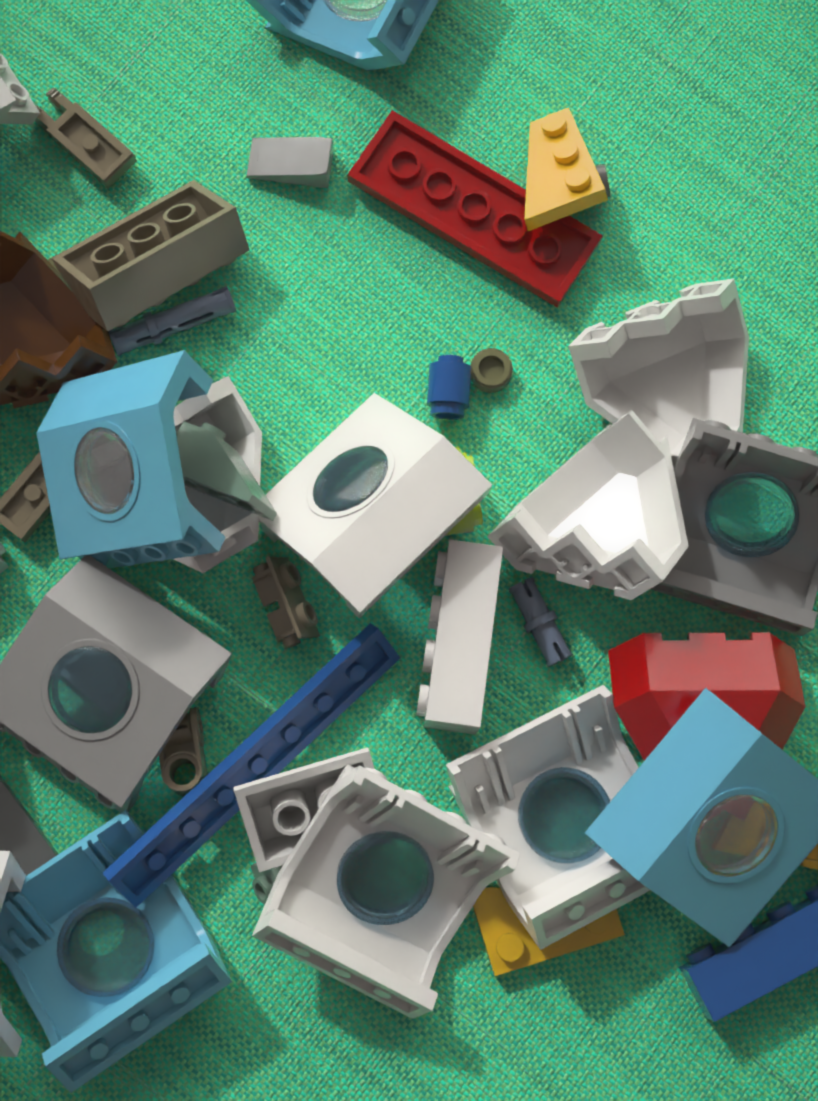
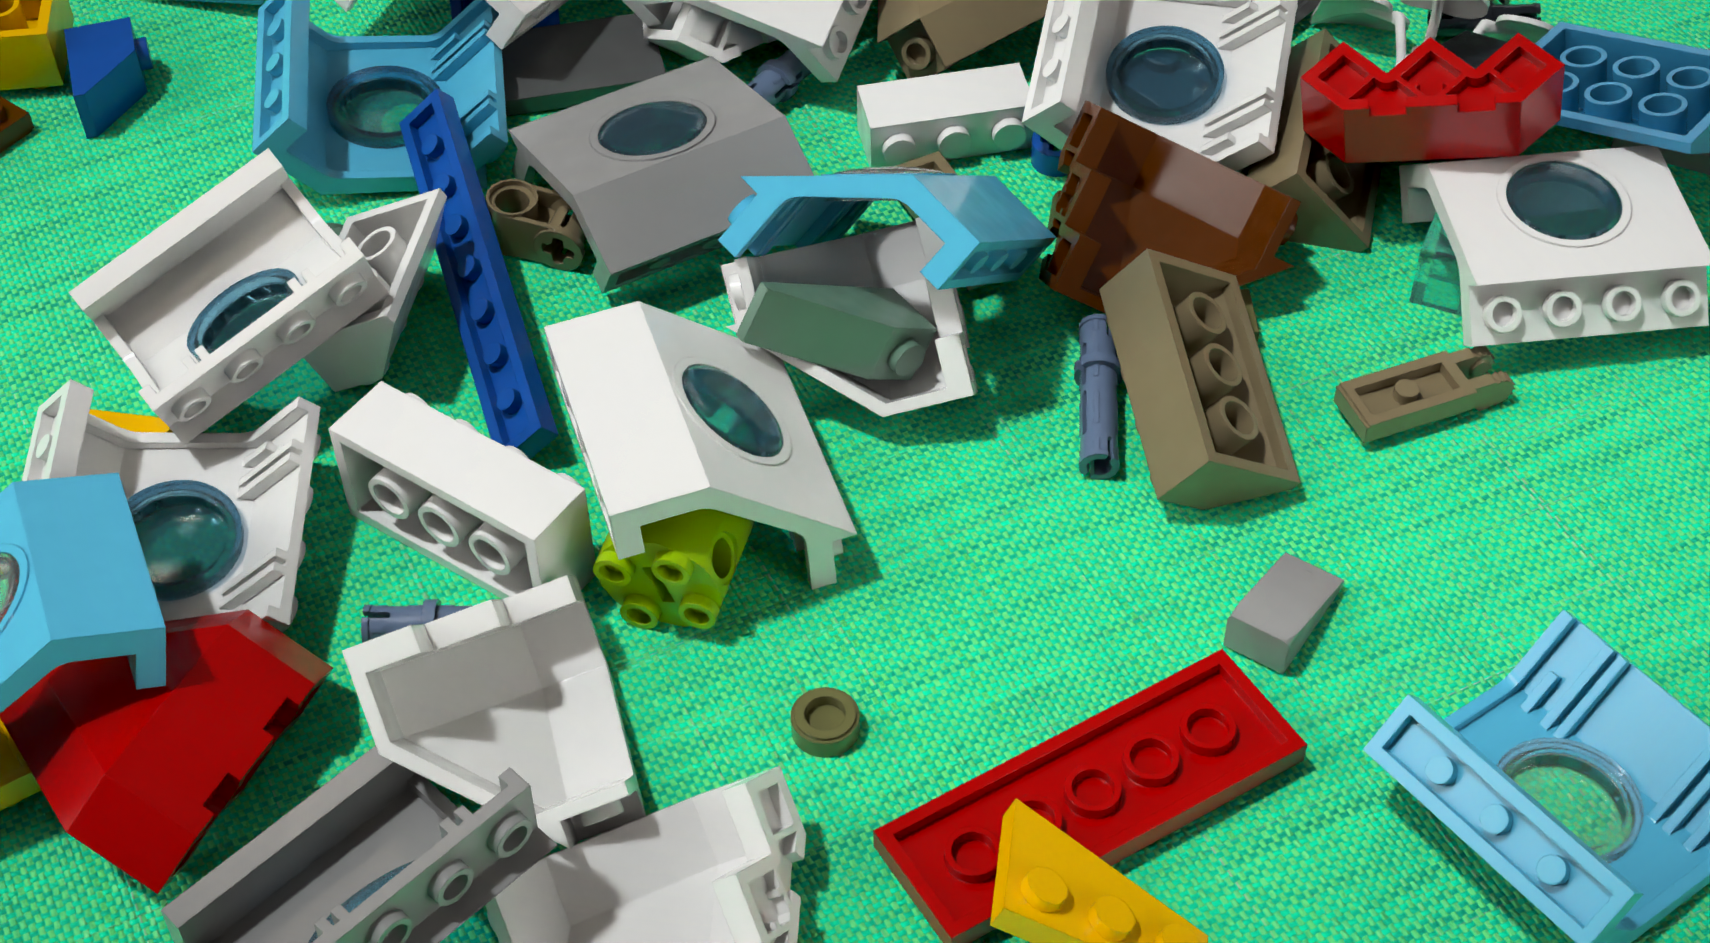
camera: 120 degrees right, 30 degrees down
(449, 387) = (824, 648): blue brick -> none

